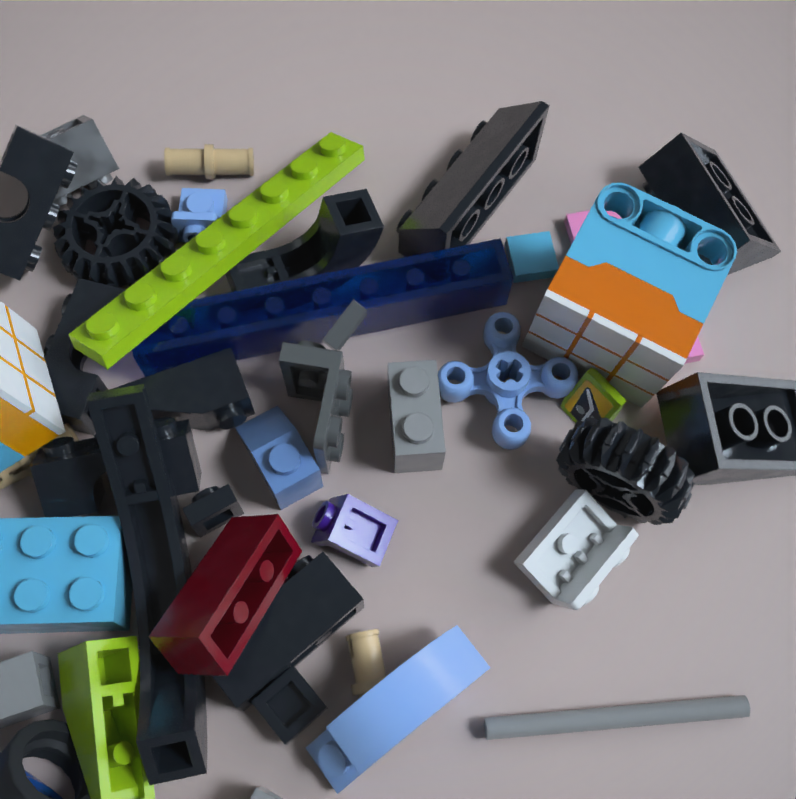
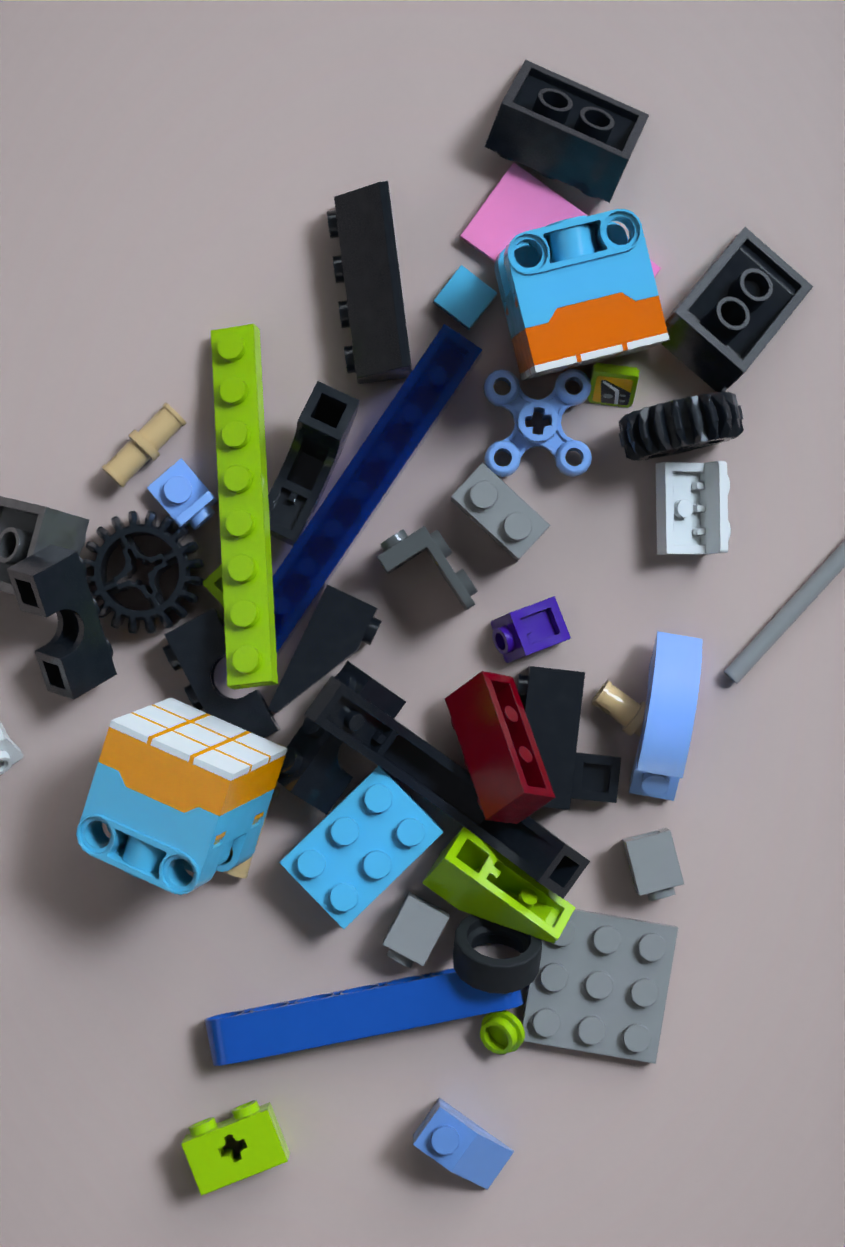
camera: 40 degrees left, 20 degrees up
(212, 509) = (422, 703): black plate -> none
(280, 457) = (427, 624): medium blue slope -> none
(345, 326) = (404, 503): dark grey tile -> none

